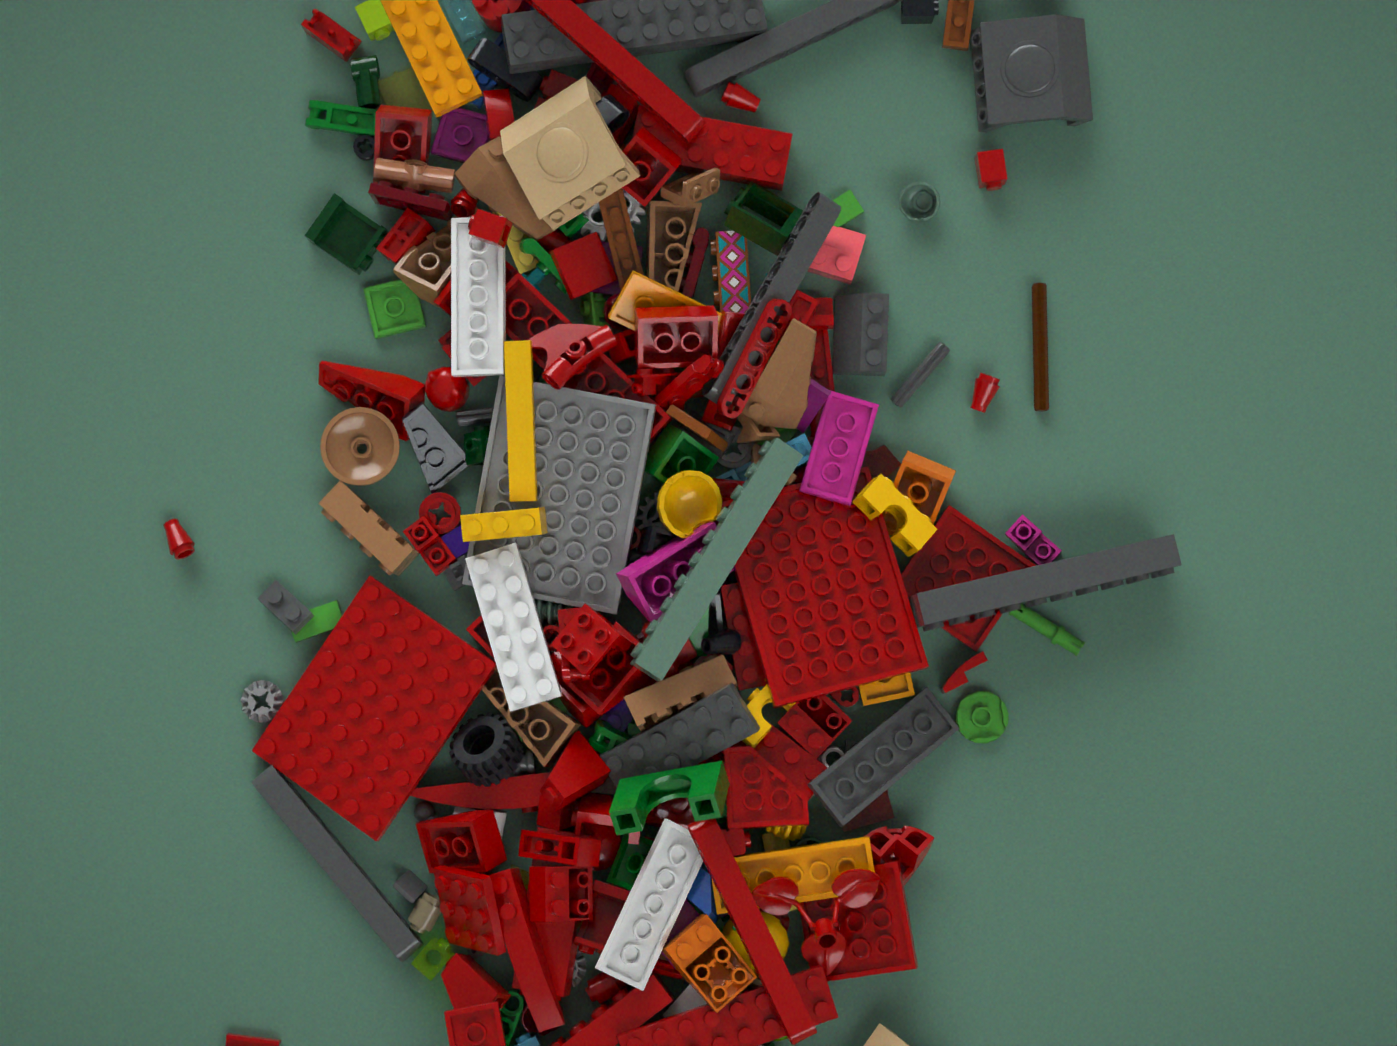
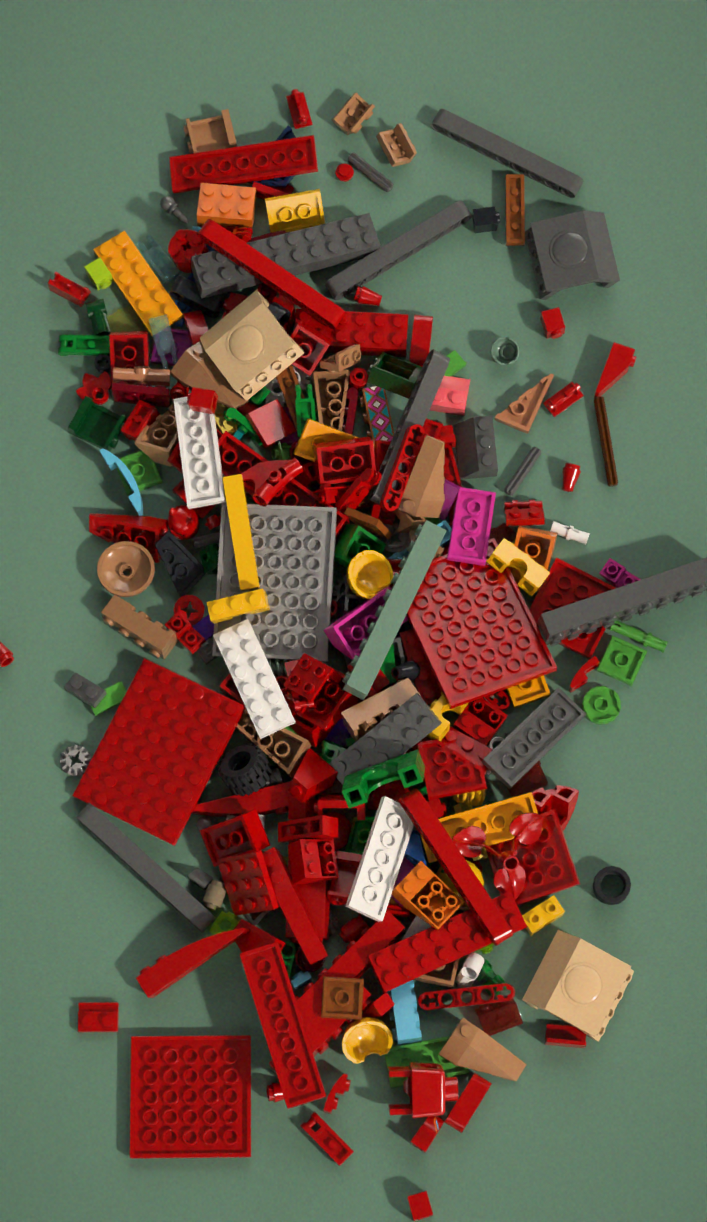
camera: 10 degrees left, 10 degrees down
(350, 178) = (95, 386): none -> red plate
(373, 1000) = (183, 961): none -> red slope
(386, 349) = (114, 462): none -> medium azure slope
(450, 125) = (163, 339): none -> clear light blue hinge
(487, 393) = (213, 521): none -> red plate
(631, 252) = (304, 408): none -> green hinge
(709, 223) = (358, 378): none -> red brick
(805, 170) = (420, 339): none -> red beam
(861, 999) = (543, 915): none -> yellow brick
(914, 442) = (524, 513): none -> red plate
(933, 289) = (523, 411): none -> nougat wing
(960, 990) = (626, 885): none -> black tyre
(972, 471) = (570, 533): none -> white pin
(990, 279) = (563, 399): none -> red hinge
(1018, 658) = (621, 660): none -> bright green tile
(1073, 238) = (616, 367): none -> red slope

